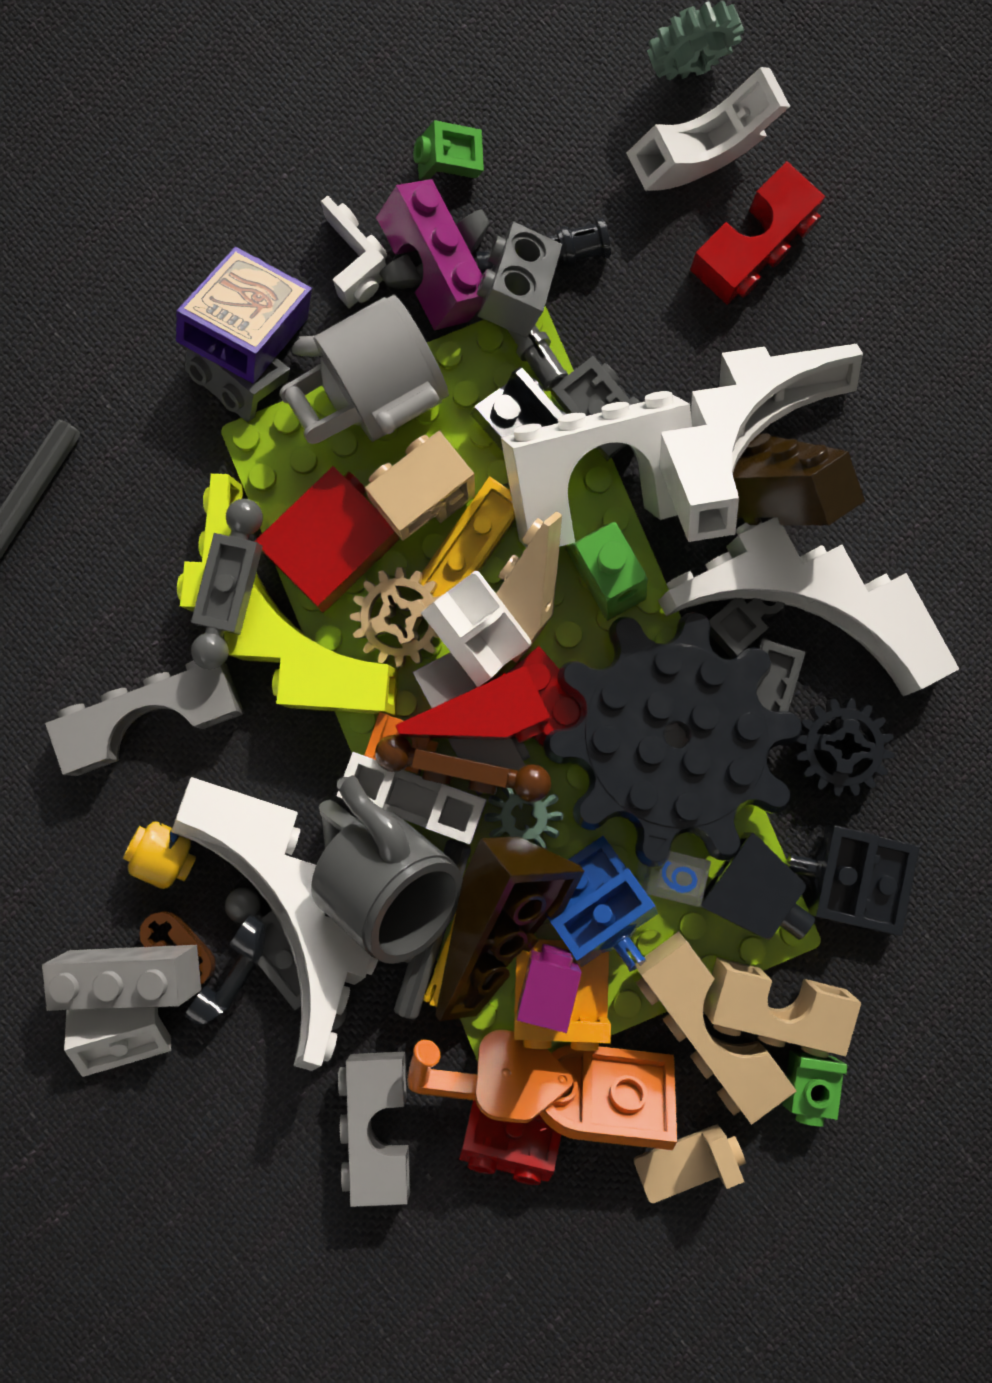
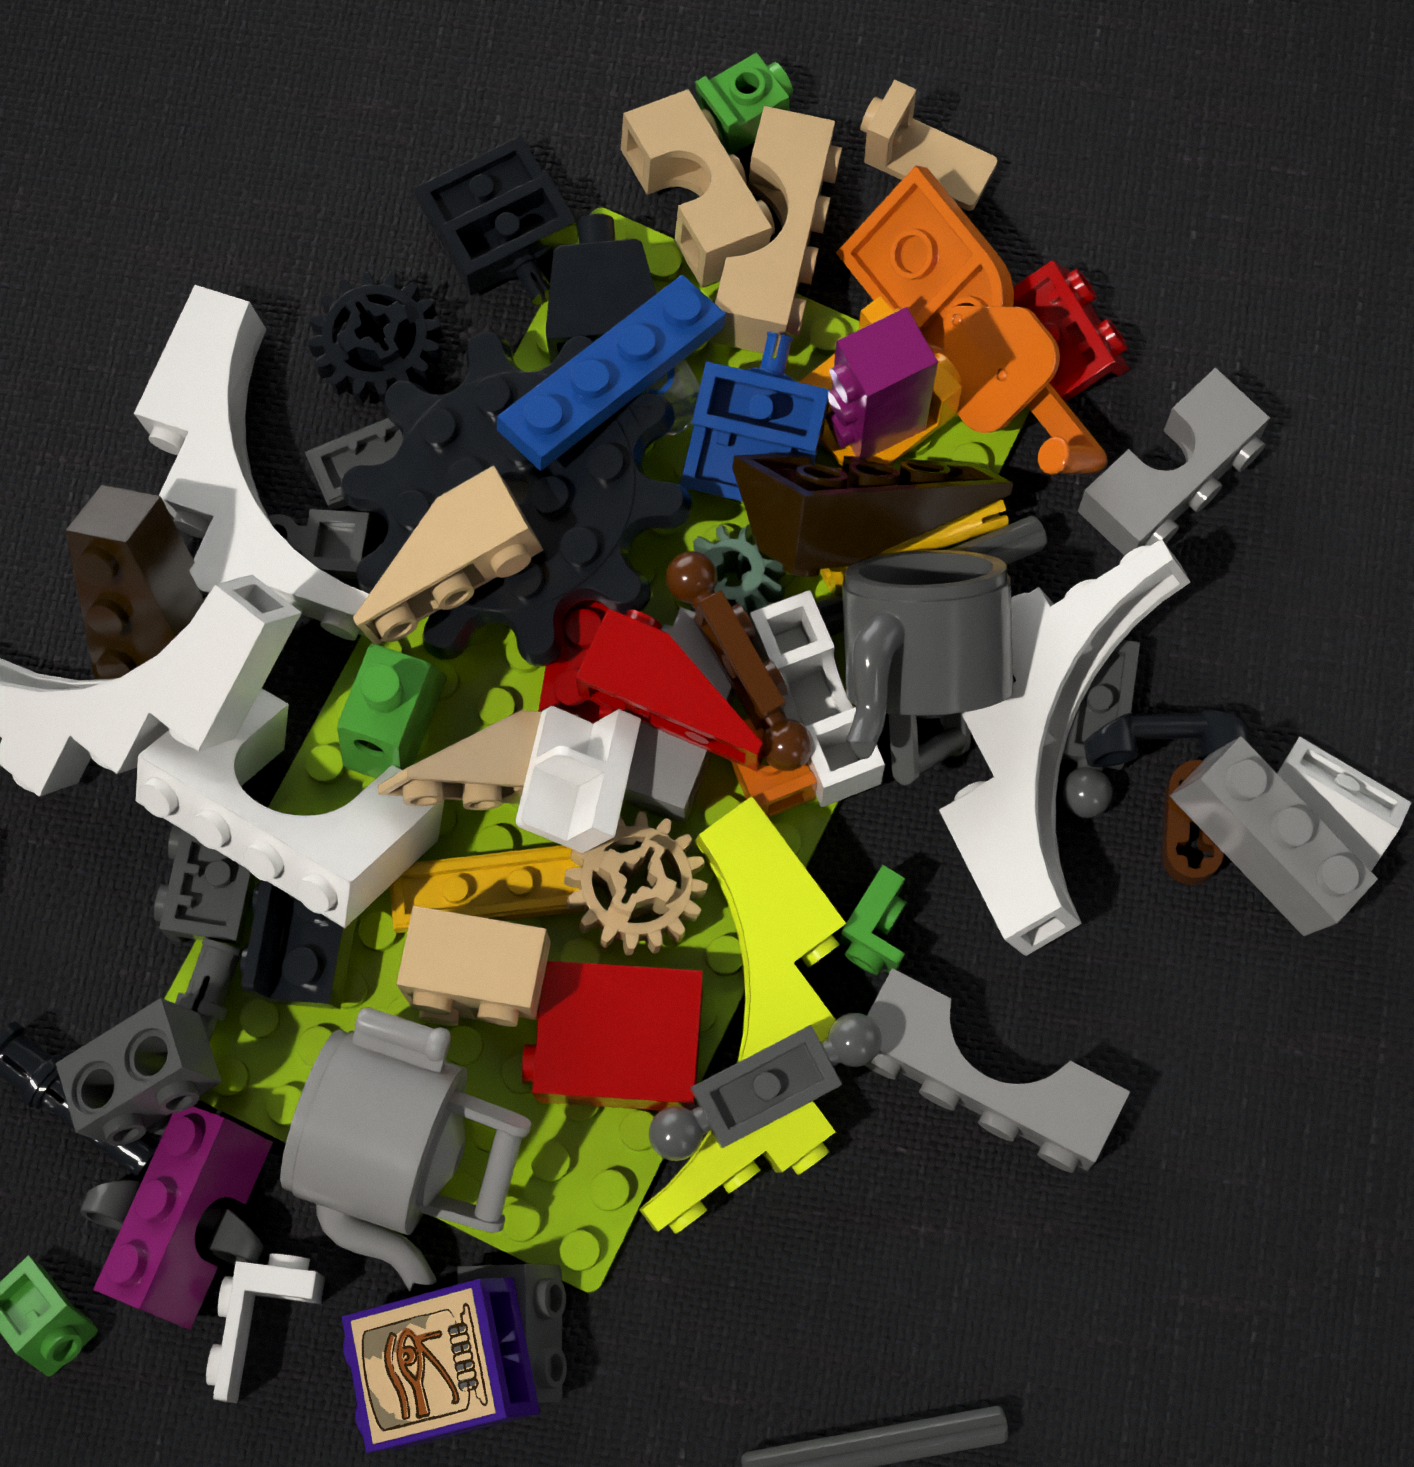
camera: 130 degrees left, 10 degrees down
(159, 855) = (1118, 922): yellow head -> none
(279, 735) = (876, 910): none -> bright green bracket
(663, 670) = (455, 548): none -> tan slope
(695, 846) = (610, 372): none -> blue plate

